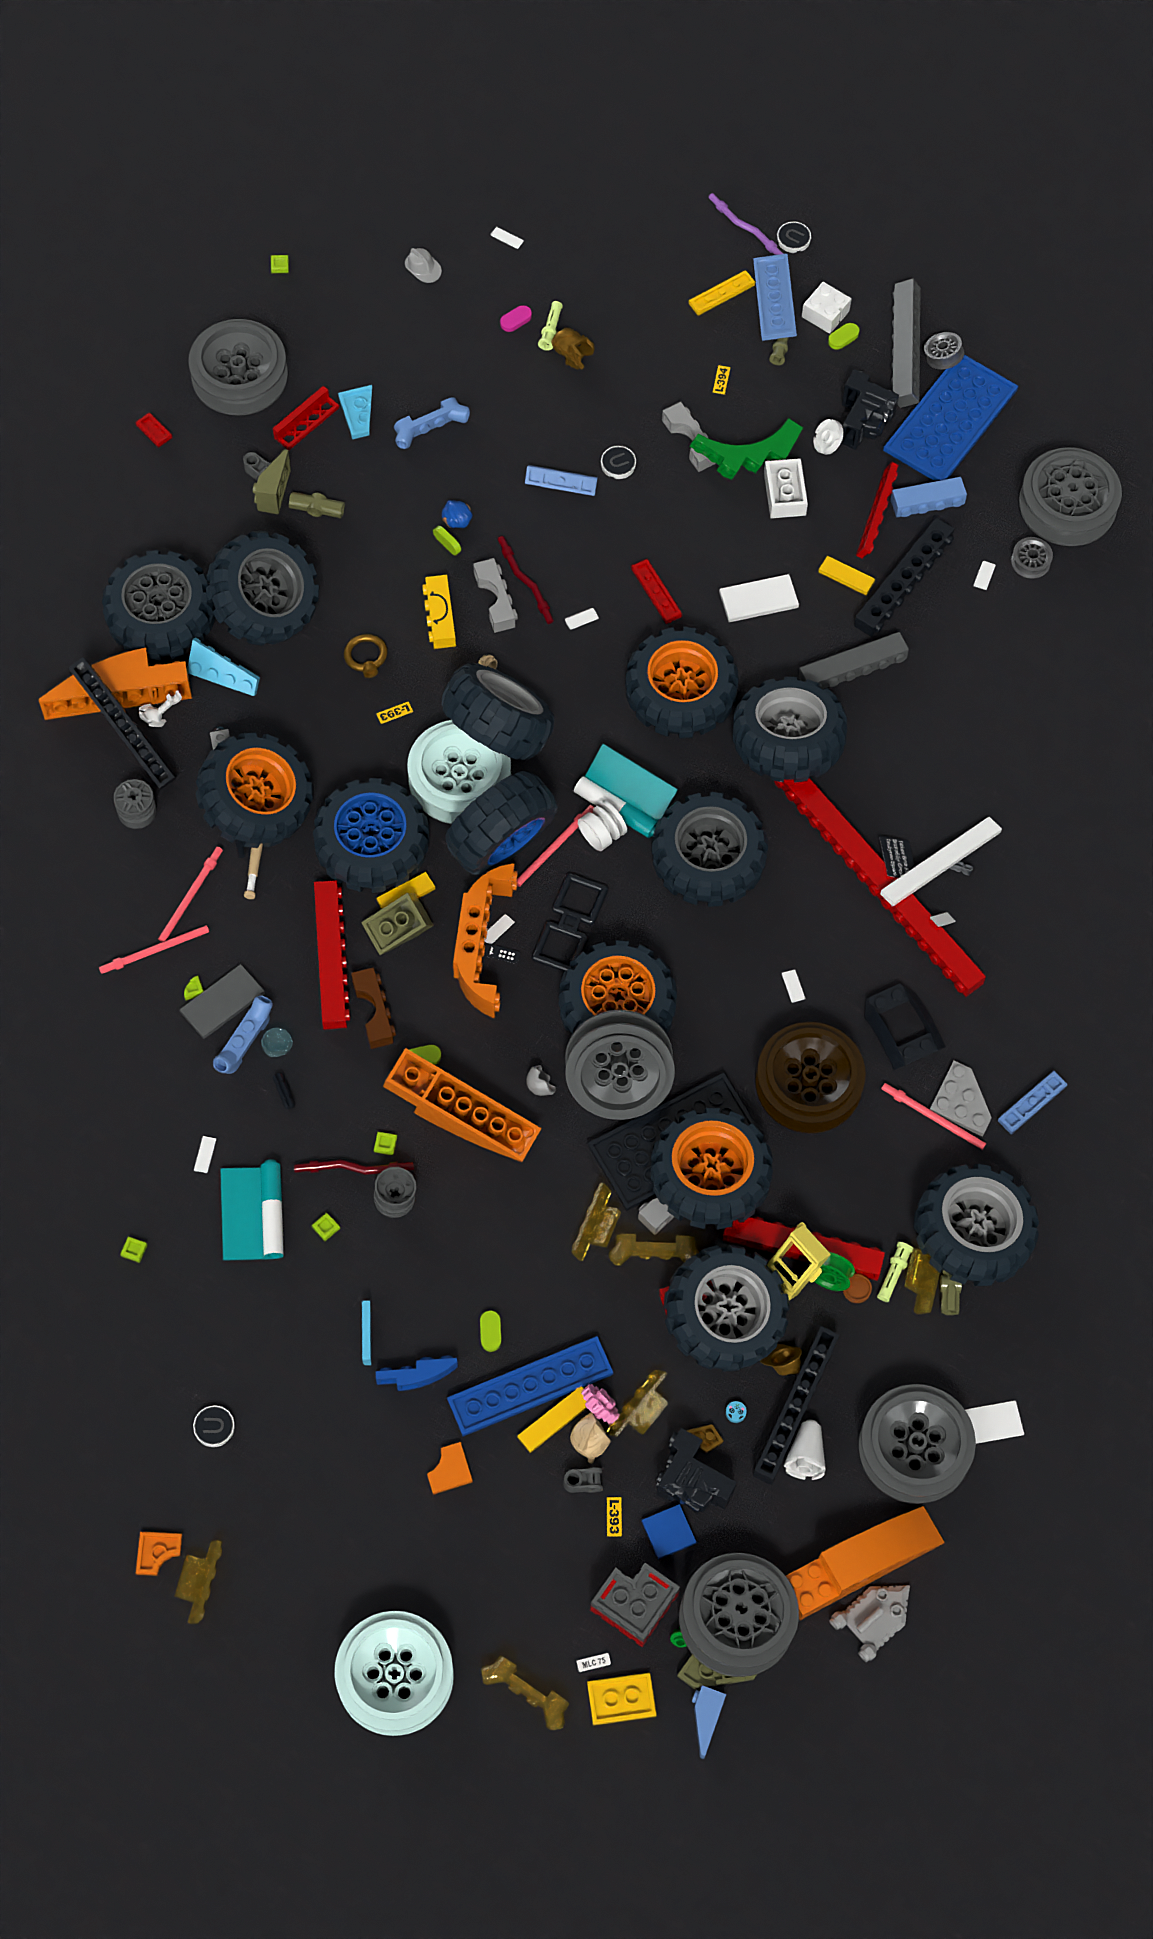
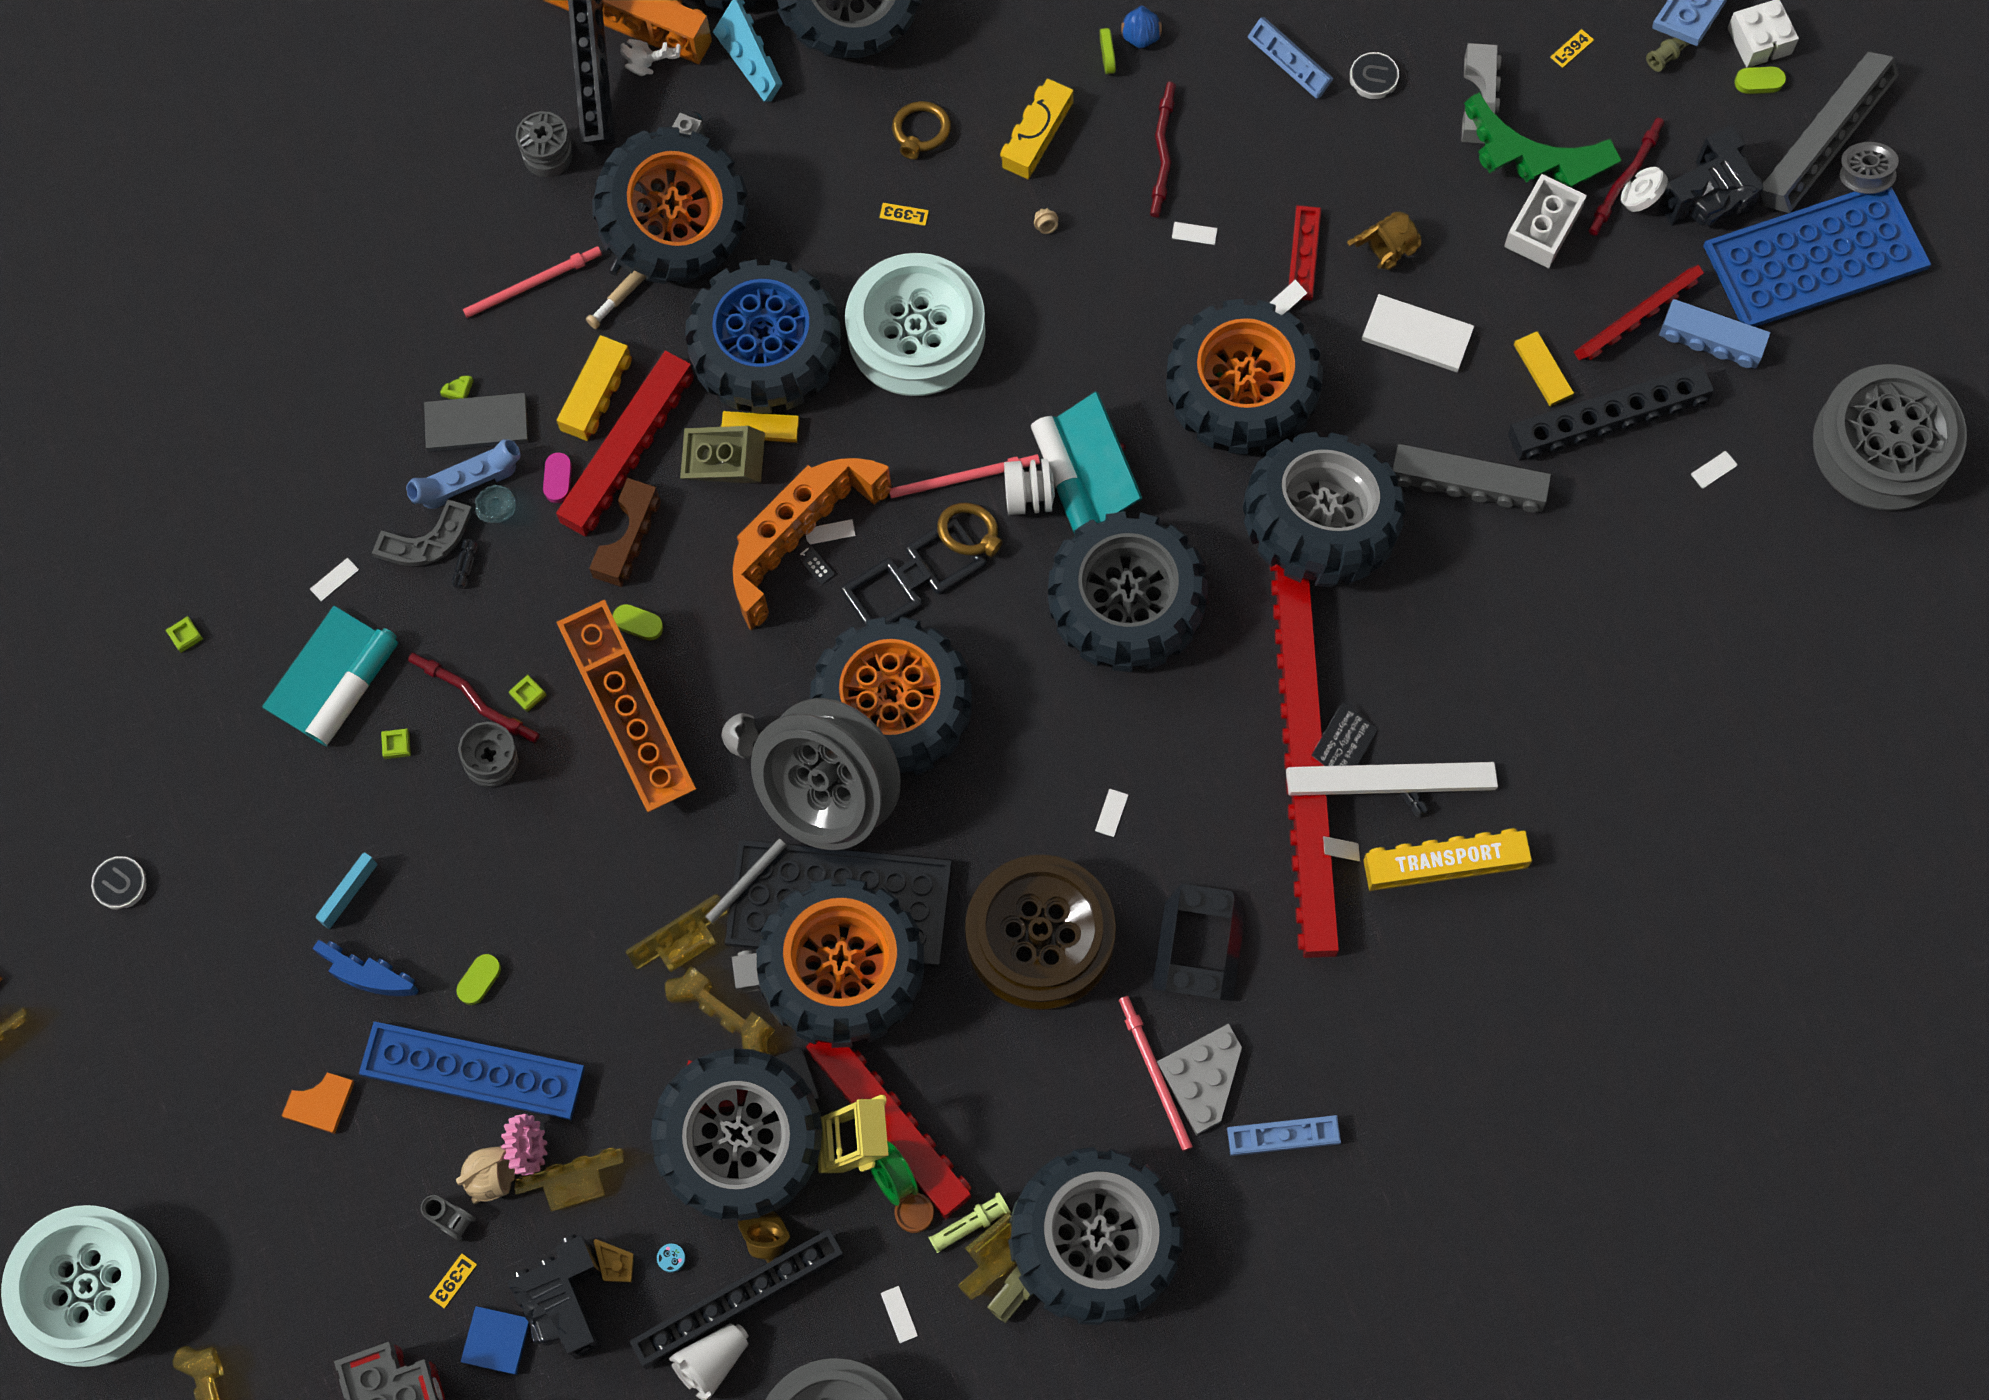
camera: 40 degrees right, 5 degrees up
(119, 963) = (402, 310): coral bar -> none
(252, 1097) = (429, 547): none -> dark grey plate
(283, 933) = (594, 388): none -> yellow brick
(301, 1002) = (557, 477): none -> dark pink tile
(488, 577) = (1104, 170): light grey arch -> none
(497, 711) = (995, 279): black wheel -> none
(501, 822) = (902, 410): black wheel -> none
(553, 1420) = (464, 1126): yellow tile -> none
(602, 874) = (990, 543): none -> pearl gold piece
(611, 1163) = (745, 881): none -> light grey piece
(669, 620) = (1288, 297): none -> white sticker
(704, 552) = (1390, 239): none -> pearl gold helmet
(812, 462) = (1604, 211): none -> dark red bar
(892, 1352) = (899, 1314): none -> white sticker
(1005, 888) = (1447, 860): none -> yellow brick
(1028, 566) = (1802, 488): flat silver wheel -> none

